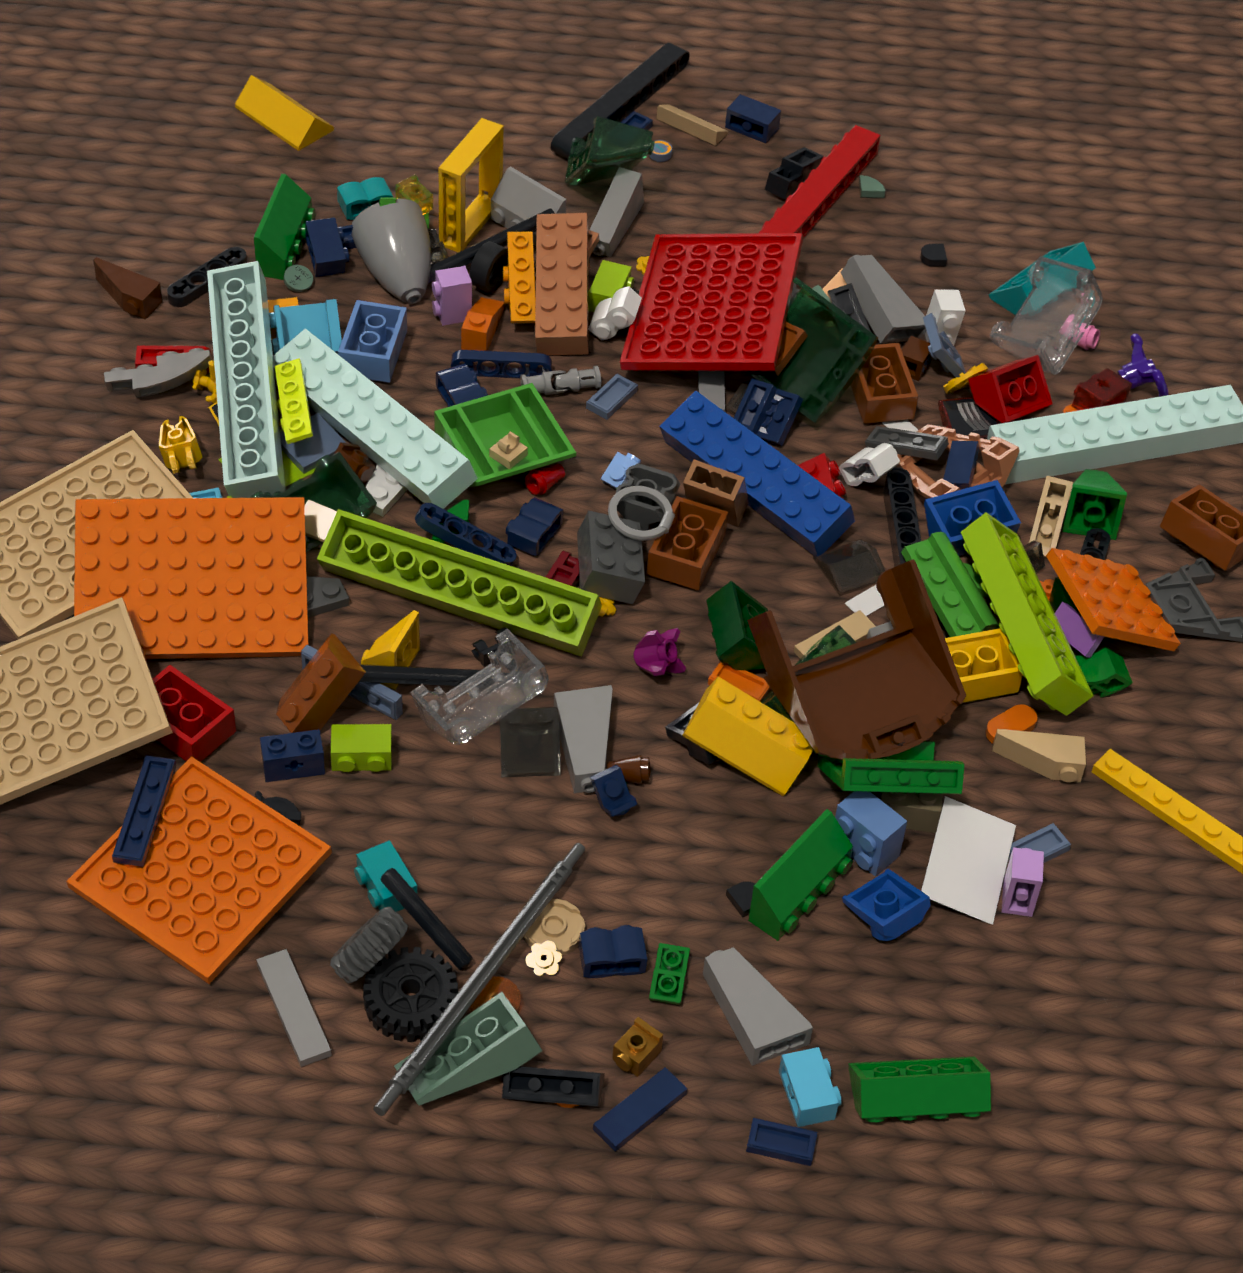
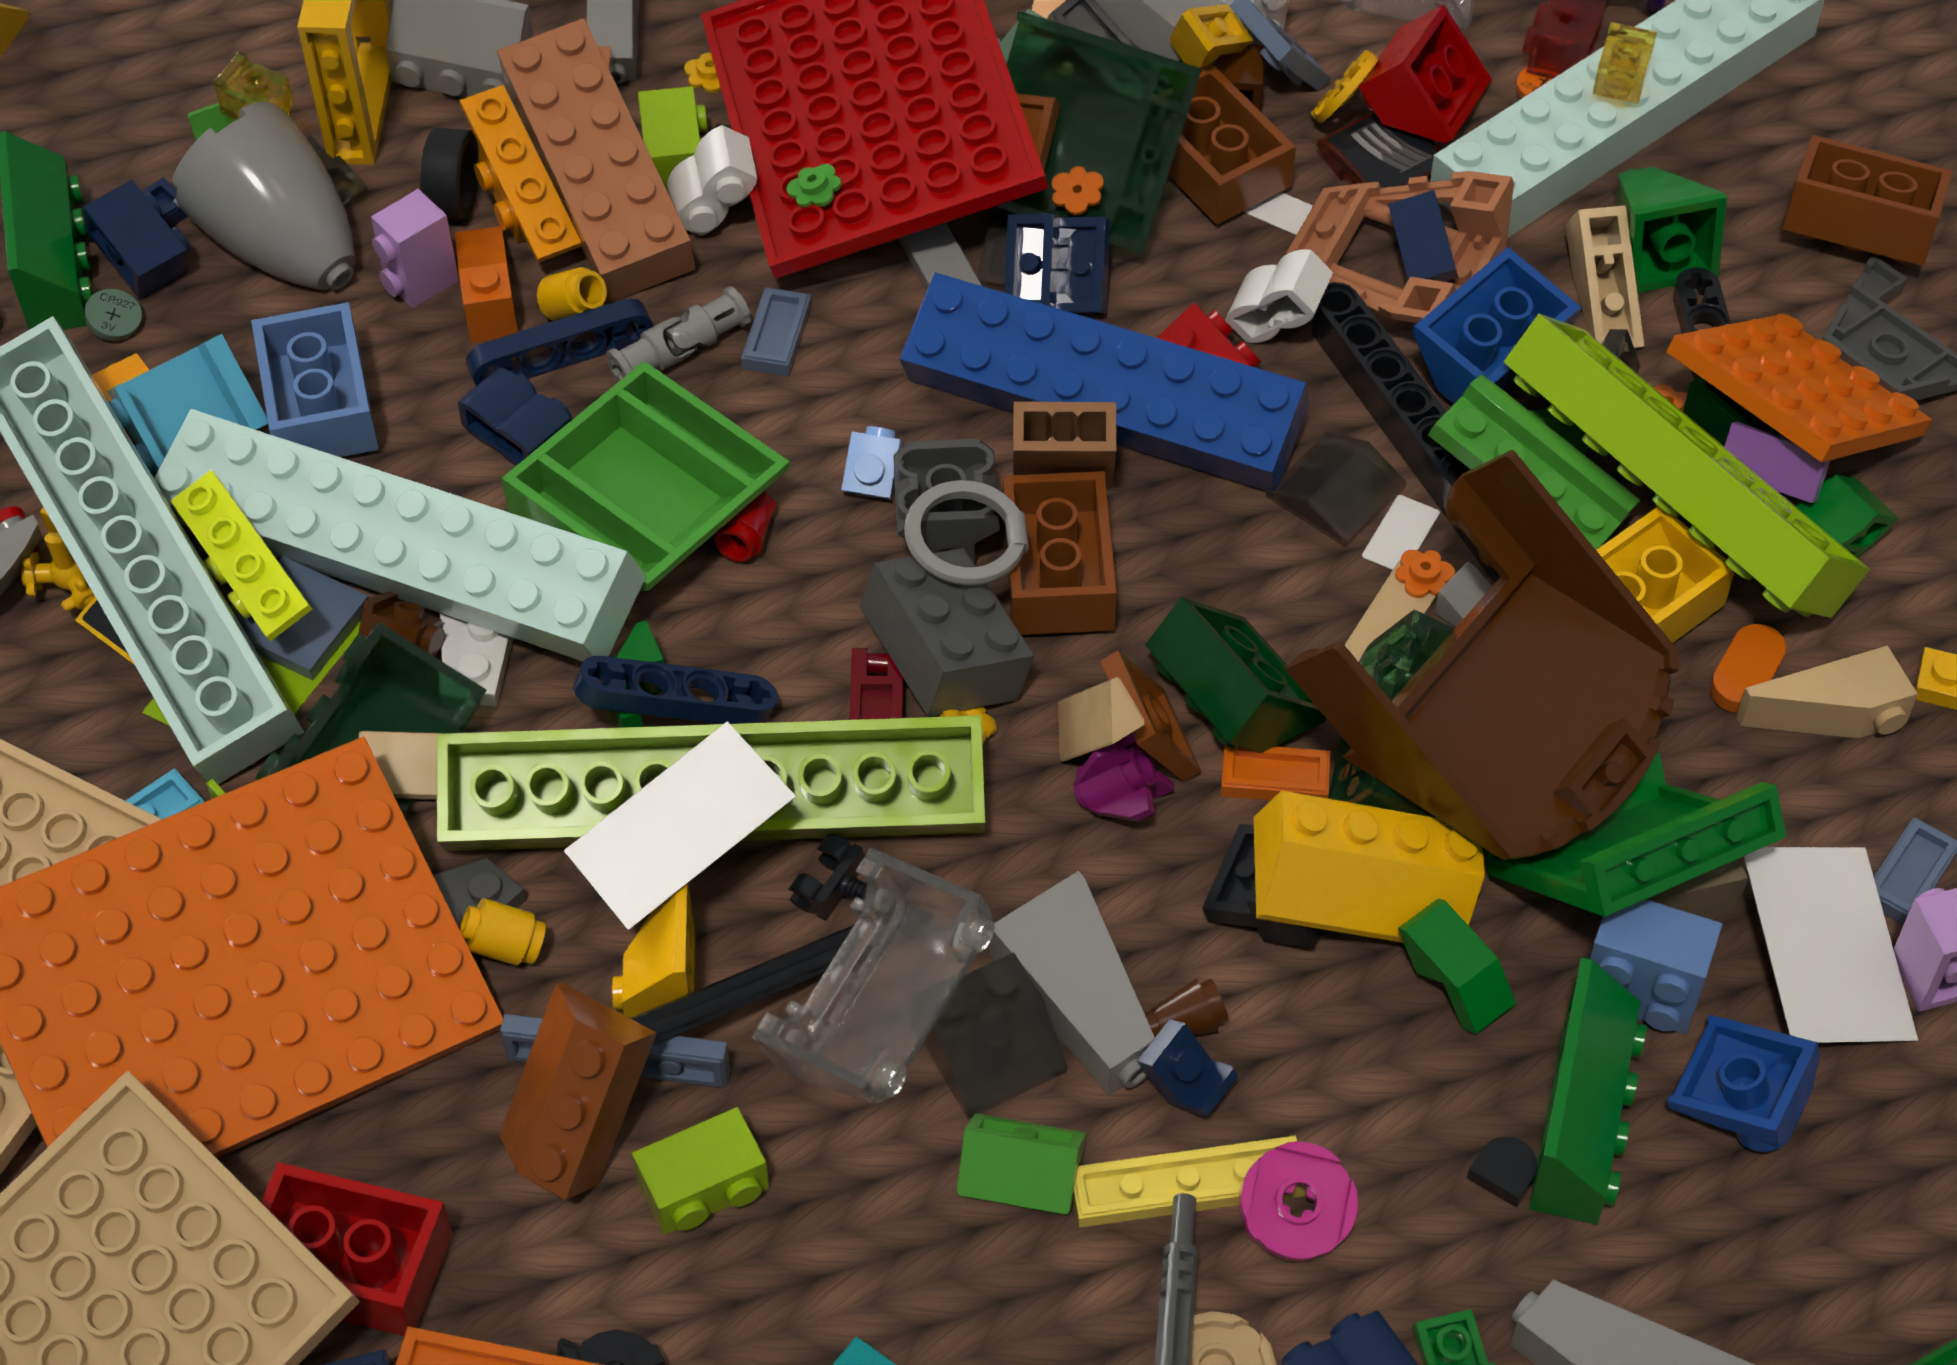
camera: 20 degrees left, 5 degrees up
(179, 445) = (65, 717): yellow hinge -> none
(292, 755) = (586, 1241): dark blue brick -> none
(327, 611) = (502, 932): none -> yellow brick
(358, 196) = (153, 125): teal brick -> none
(428, 589) = (678, 824): none -> white sticker
(467, 255) = (409, 153): black axle -> none
(508, 450) = (675, 504): tan tile -> none
(511, 802) = (1020, 1163): none -> bright green panel
(518, 341) = (570, 293): none -> yellow brick
(534, 526) = (777, 623): dark blue brick -> none
(598, 844) = (1147, 1184): none -> light yellow tile
(629, 852) = (1326, 1183): none -> dark pink plate
(658, 618) = (1096, 718): none -> tan slope
(662, 331) = (814, 186): none -> bright green plant
(687, 631) = (1162, 732): none -> dark orange tile
(776, 798) = (1453, 954): none -> green slope
(796, 380) = (1077, 190): none -> orange plant
(867, 619) = (1423, 572): none -> orange plant
(904, 326) = (1207, 34): none -> yellow slope
(909, 442) = (1321, 230): dark grey tile -> none
(1114, 413) = (1624, 63): none -> clear yellow brick

